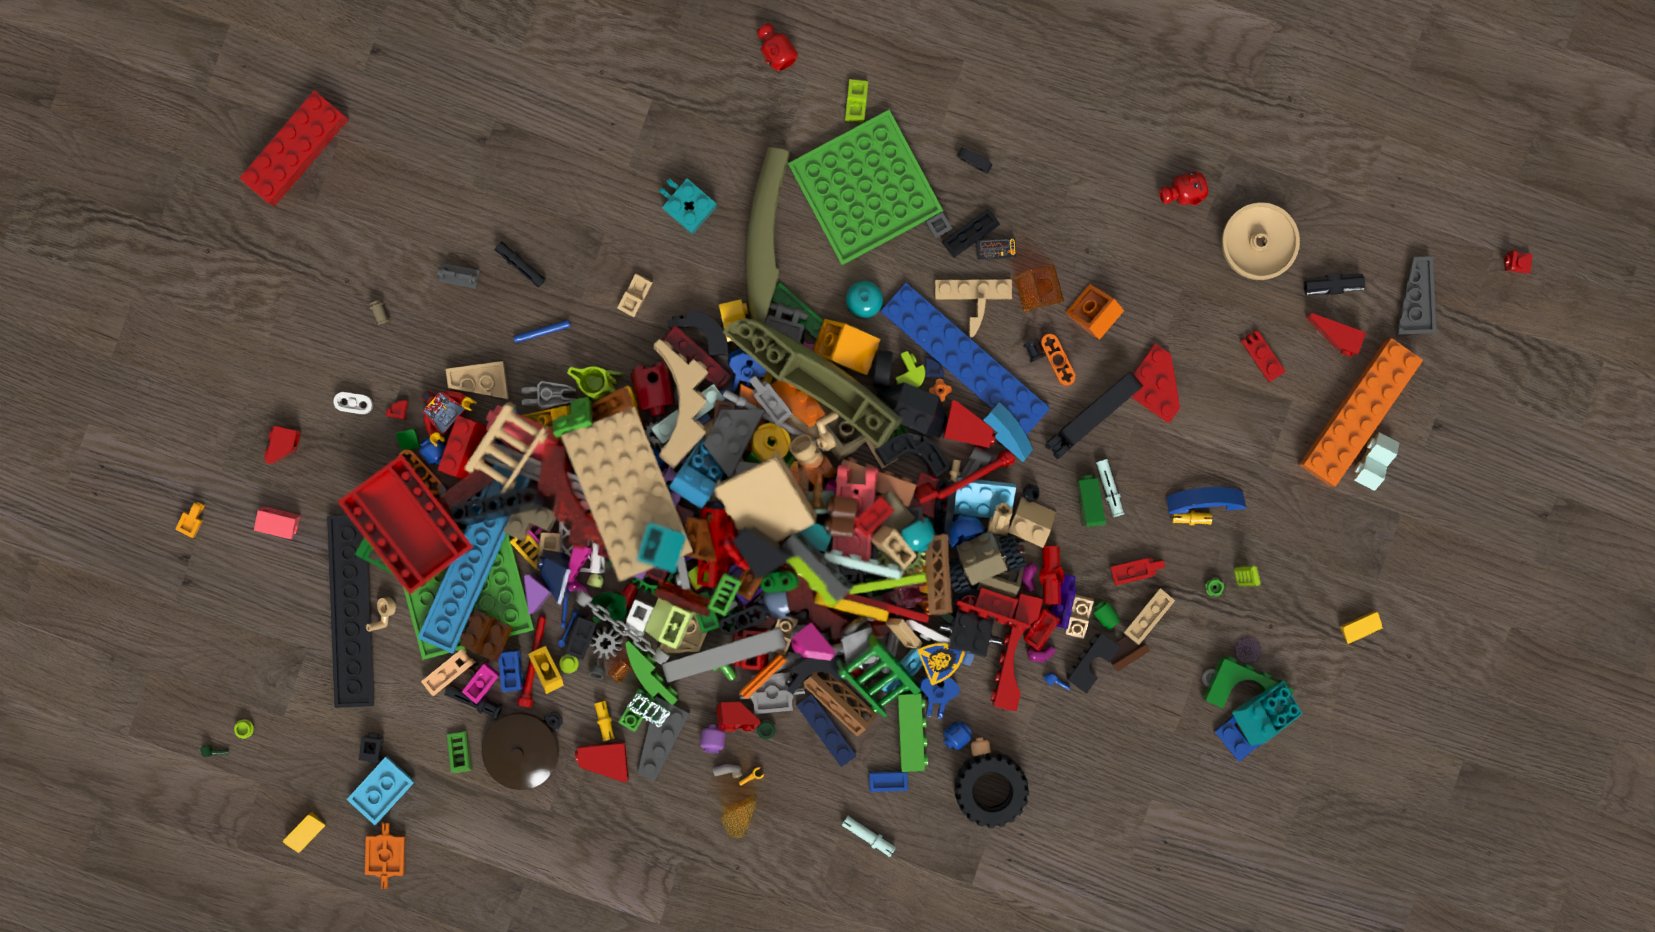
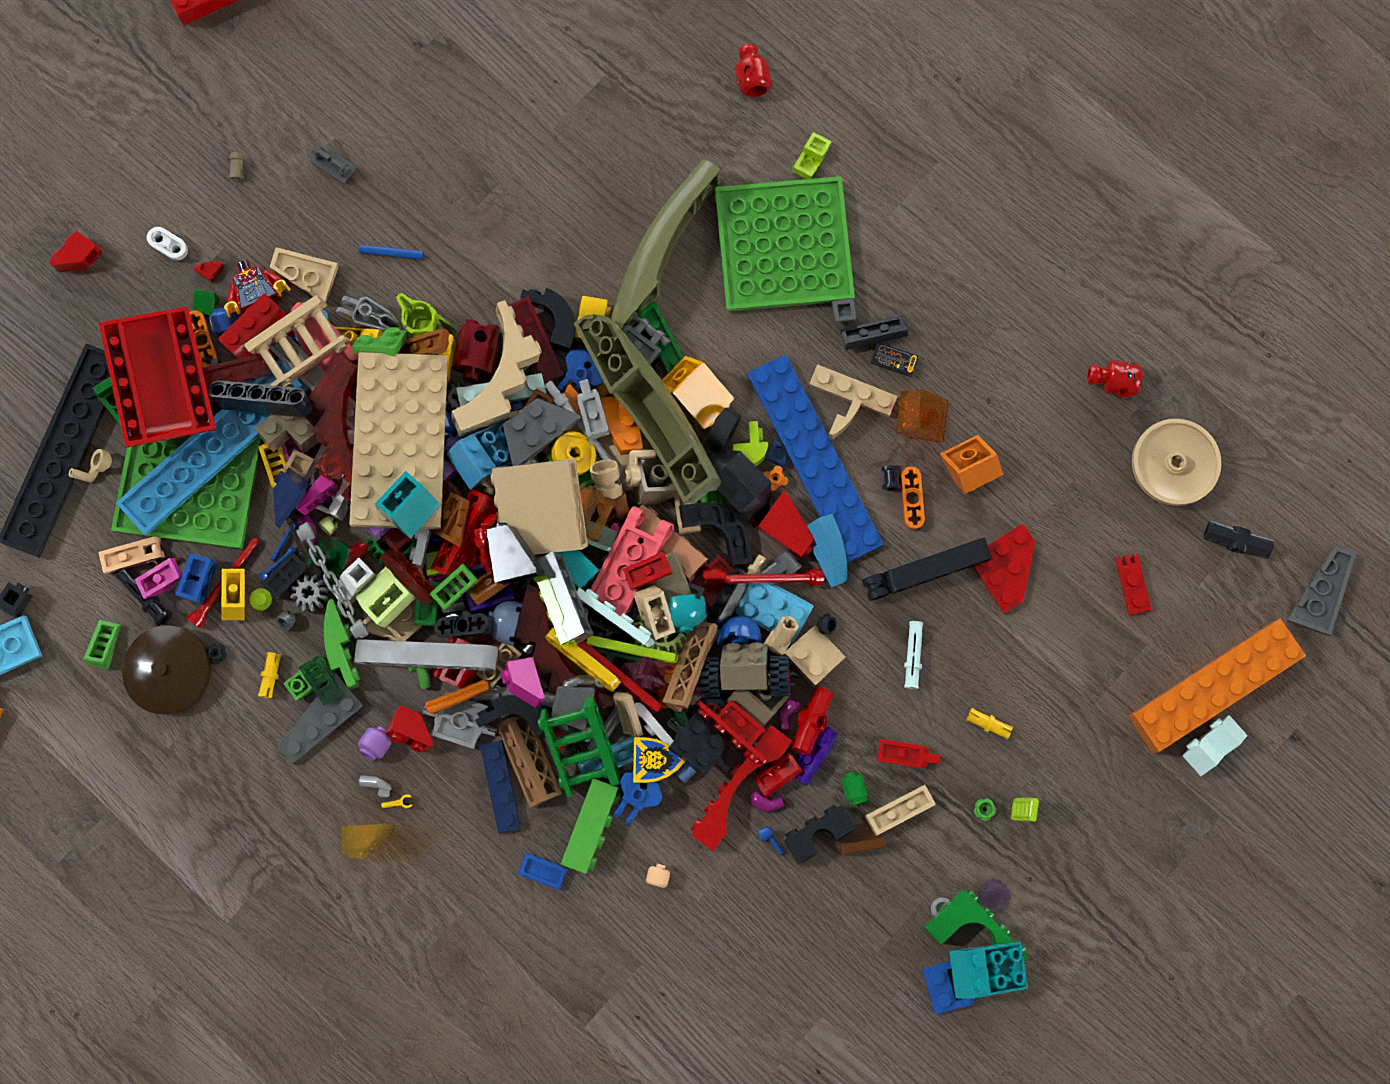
camera: 25 degrees right, 10 degrees down
(277, 522) = (32, 329): coral hinge -> none
(486, 635) = (186, 529): reddish brown plate -> none
(516, 261) = (395, 168): black pin -> none
(536, 592) = (259, 509): medium lavender slope -> none
(604, 759) = (251, 716): red slope -> none
(620, 670) = (310, 629): clear orange bush -> none
(635, 295) = (502, 255): tan slope -> none
(684, 195) = (584, 185): teal hinge -> none
(766, 729) = (436, 758): dark green plate -> none
(778, 581) = (516, 598): green plate -> none
(841, 516) = (612, 556): reddish brown brick -> none
(864, 299) = (735, 354): teal cylinder -> none
(869, 836) = (496, 924): light aqua pin -> none
(957, 735) = (638, 852): blue head -> none
(974, 160) = (908, 261): black beam -> none
(998, 814) = (618, 926): black tyre -> none
(1080, 616) = (824, 779): tan slope -> none
(1090, 501) = (886, 659): green slope -> none
(1205, 497) = (1012, 706): blue slope -> none
(1340, 336) = (1223, 594): red slope -> none
(1361, 627) = (1130, 922): yellow slope -> none

